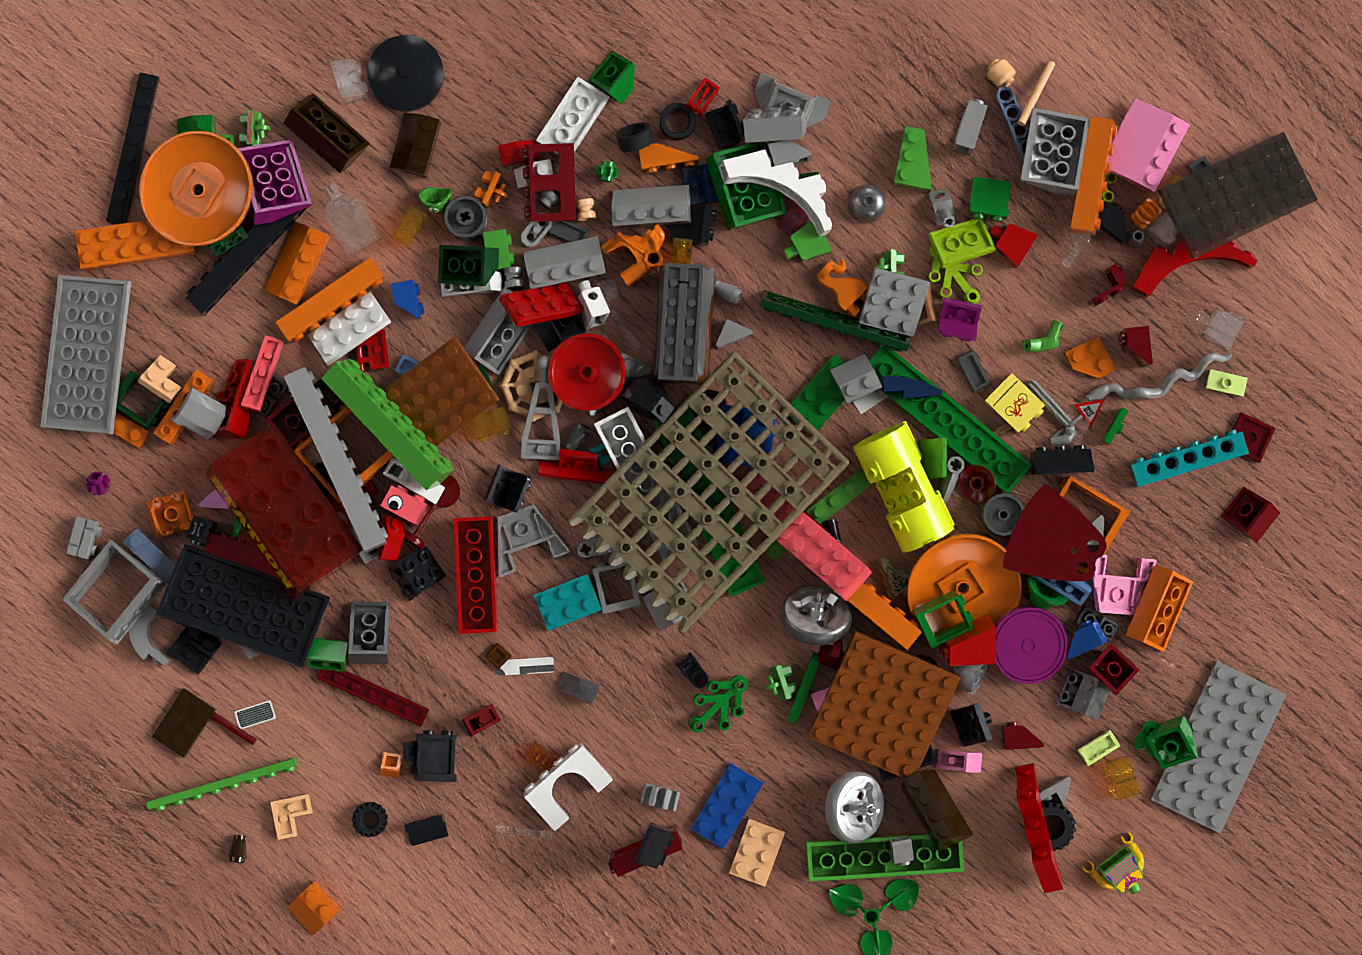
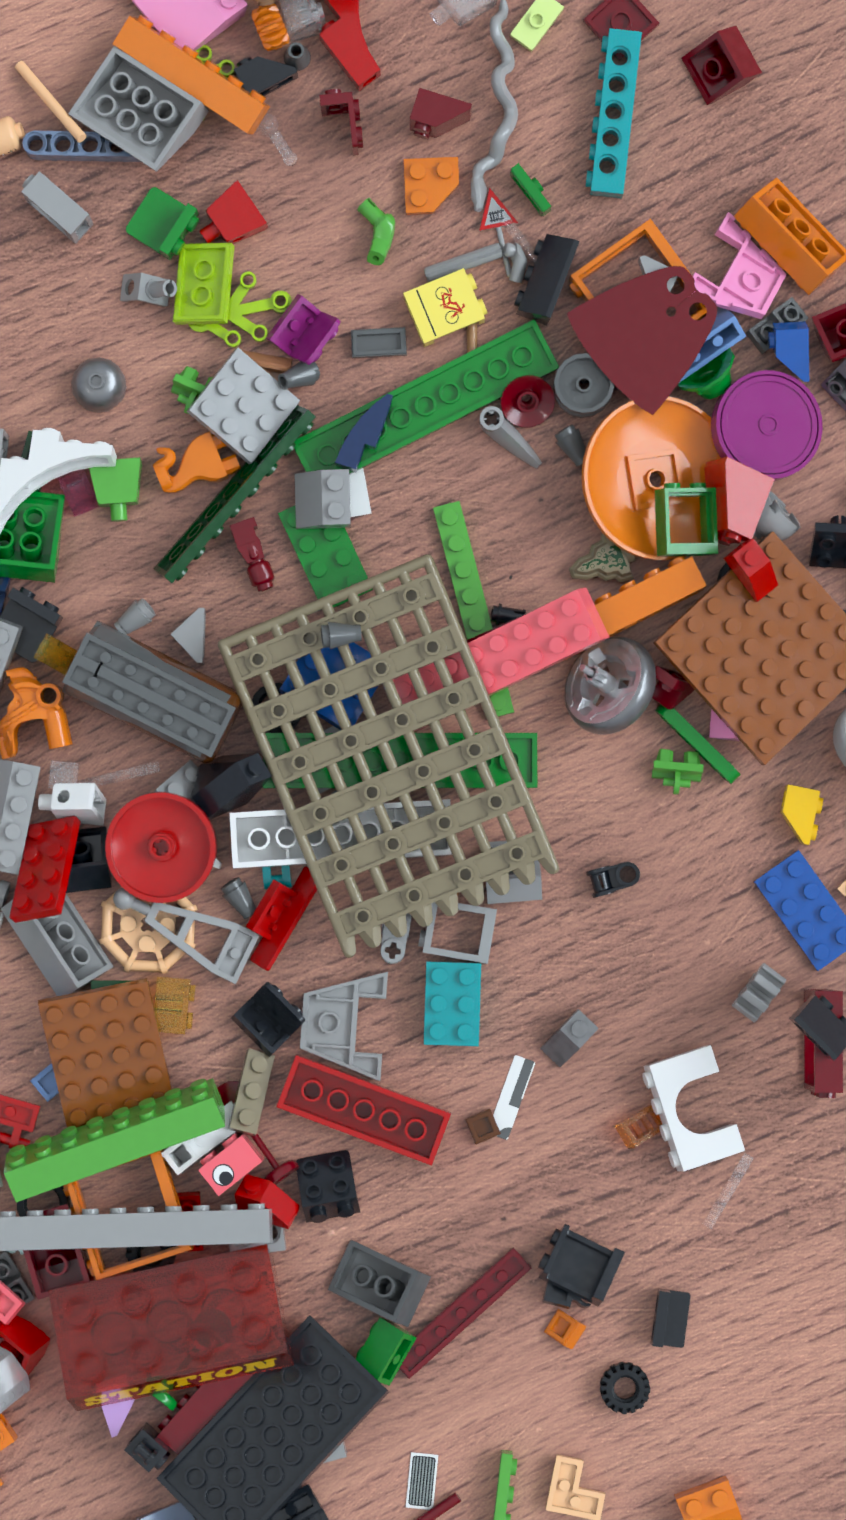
camera: 65 degrees left, 0 degrees up
(169, 514) = (108, 1481): orange slope -> none
(455, 498) = (251, 1092): none -> dark tan plate
(481, 720) = (558, 1184): dark red slope -> none
(721, 702) = (668, 860): green plant -> none
(772, 426) = (339, 634): none -> dark grey cone
(789, 772) = (799, 811): none -> yellow slope
(805, 345) = (251, 550): none -> dark red piece
(912, 163) = (69, 301): bright green wedge -> none
(914, 508) = (526, 496): neon yellow cylinder -> none
(929, 329) = (299, 376): none -> dark grey cone
(930, 674) = (752, 569): none -> red slope
(934, 457) = (470, 445): bright green slope -> none
(962, 523) = (571, 443): none -> dark grey cone

